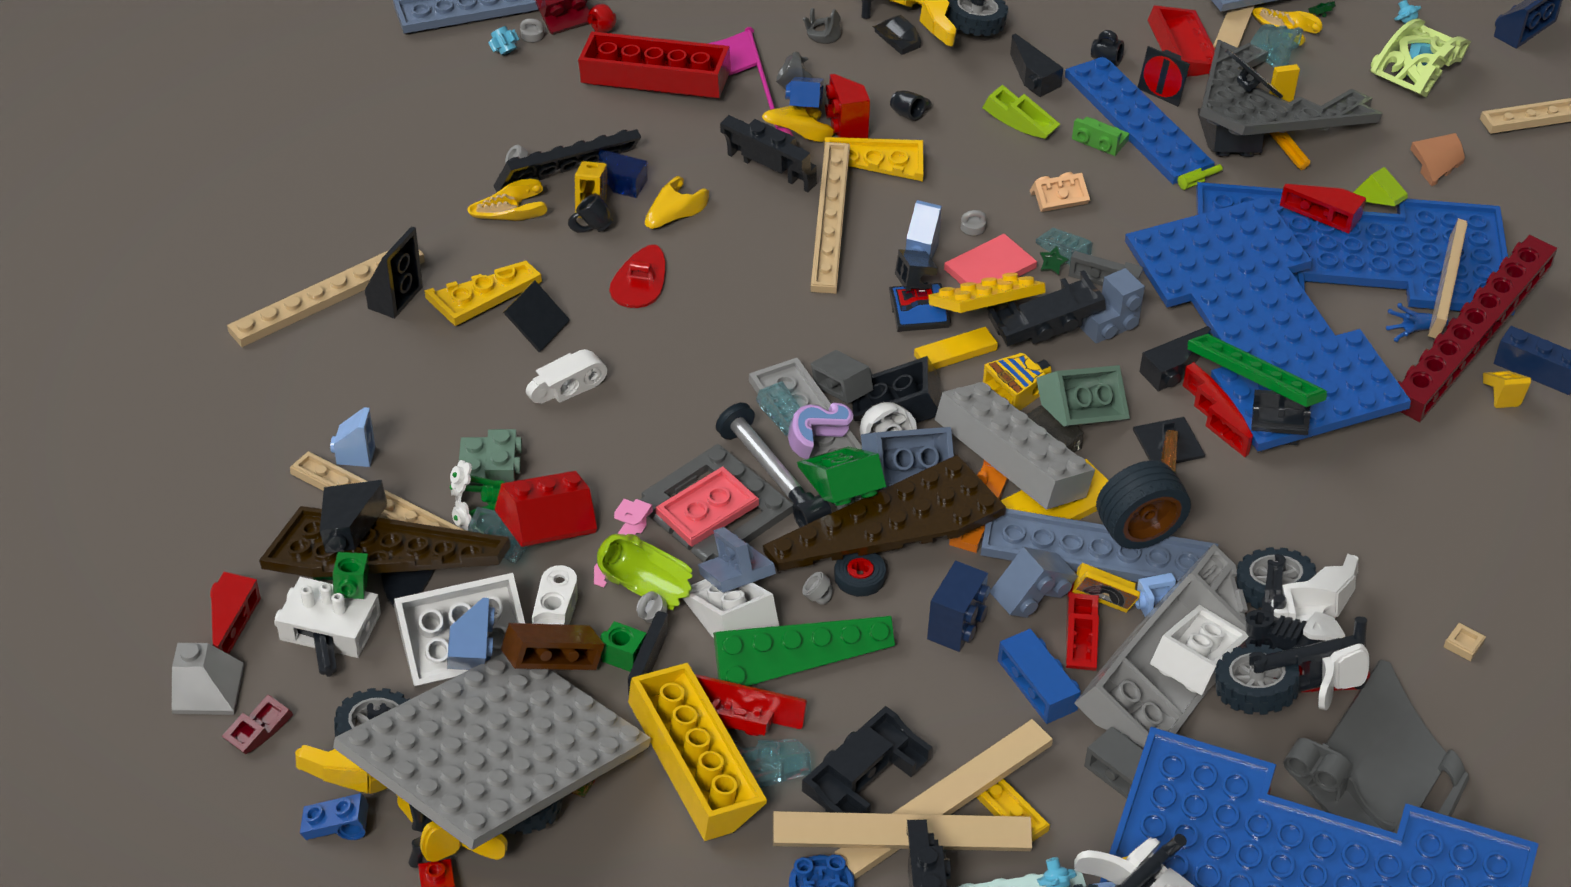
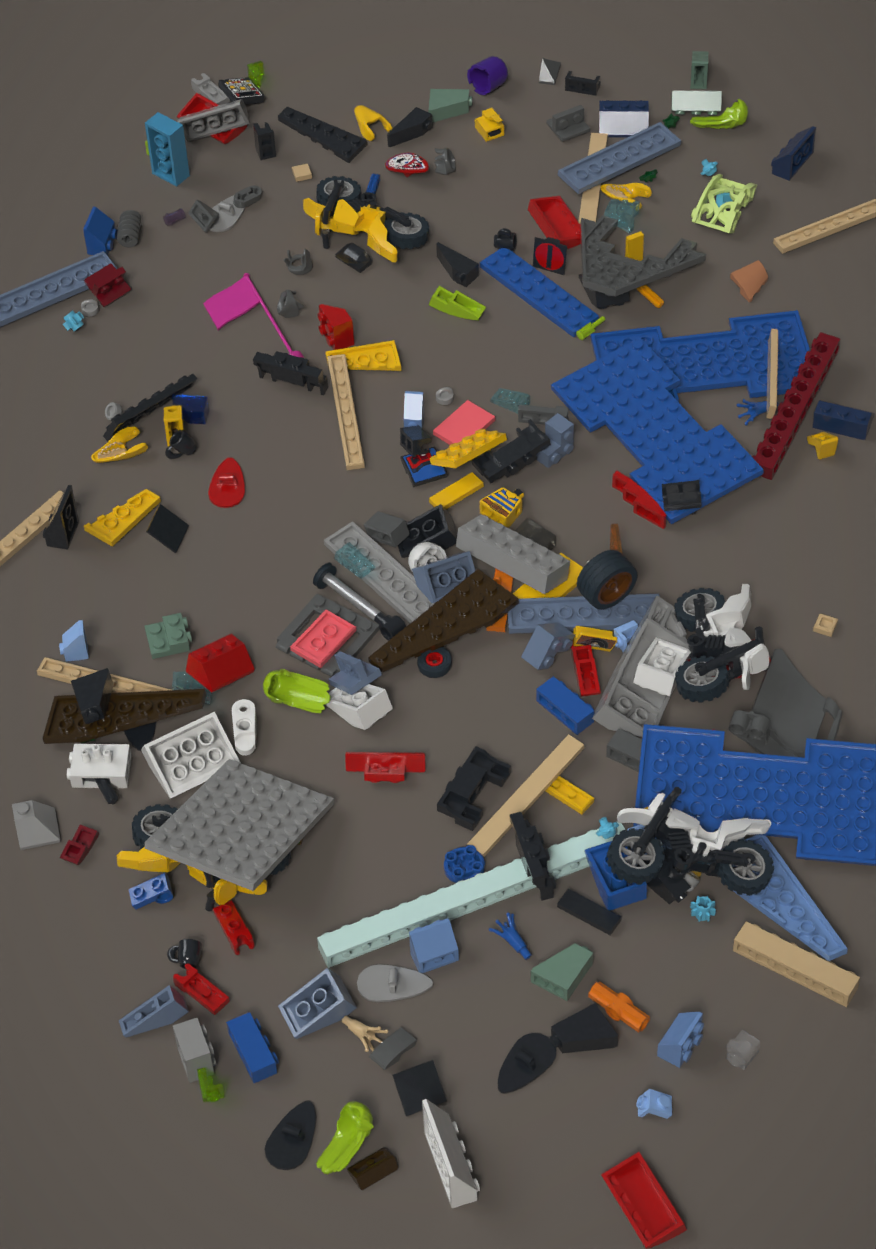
camera: 10 degrees left, 5 degrees up
(232, 605) = (34, 771): red slope -> none
(350, 574) = (109, 735): green brick -> none
(460, 479) = (160, 656): plant -> none
(468, 637) = (201, 762): medium blue slope -> none
(552, 646) = (254, 754): reddish brown brick -> none
(567, 377) = (202, 568): white piece -> none
(602, 18) = (138, 288): red piece -> none
(621, 645) = (297, 744): green brick -> none
(634, 521) = (277, 656): bright pink piece -> none
(649, 605) = (307, 714): light grey tile -> none
(651, 646) = (314, 745): black tile -> none
(655, 64) = (189, 319): red brick -> none
(673, 205) = (234, 425): yellow animal -> none
(695, 750) = (363, 799): yellow slope -> none
(776, 761) = (412, 796): clear light blue slope -> none
(777, 651) = (397, 725): green wing -> none
(800, 120) = (304, 342): yellow animal -> none
(805, 92) = (303, 320): blue brick -> none
(817, 421) = (380, 565): lavender animal -> none
(817, 586) = (410, 678): light grey tile -> none
(844, 474) = (408, 598): green slope -> none
(889, 830) = (500, 823): tan tile -> none
(909, 104) = (377, 313): black piece -> none
(958, 606) = (504, 671): dark blue brick -> none
(1053, 261) = (506, 413): dark green piece -> none
(1060, 192) = (498, 360): light nougat bracket -> none
(1084, 395) = (551, 510): sand green slope -> none
(1099, 135) = (515, 310): bright green bracket -> none
(1153, 435) = (601, 527): black piece -> none
(1167, 363) = (600, 472): black slope -> none
(1249, 85) = (613, 245): black shield -> none
(1257, 370) = (659, 469): green tile -> none
(1325, 204) = (683, 335): red slope -> none
(1382, 189) = (716, 314): lime slope -> none

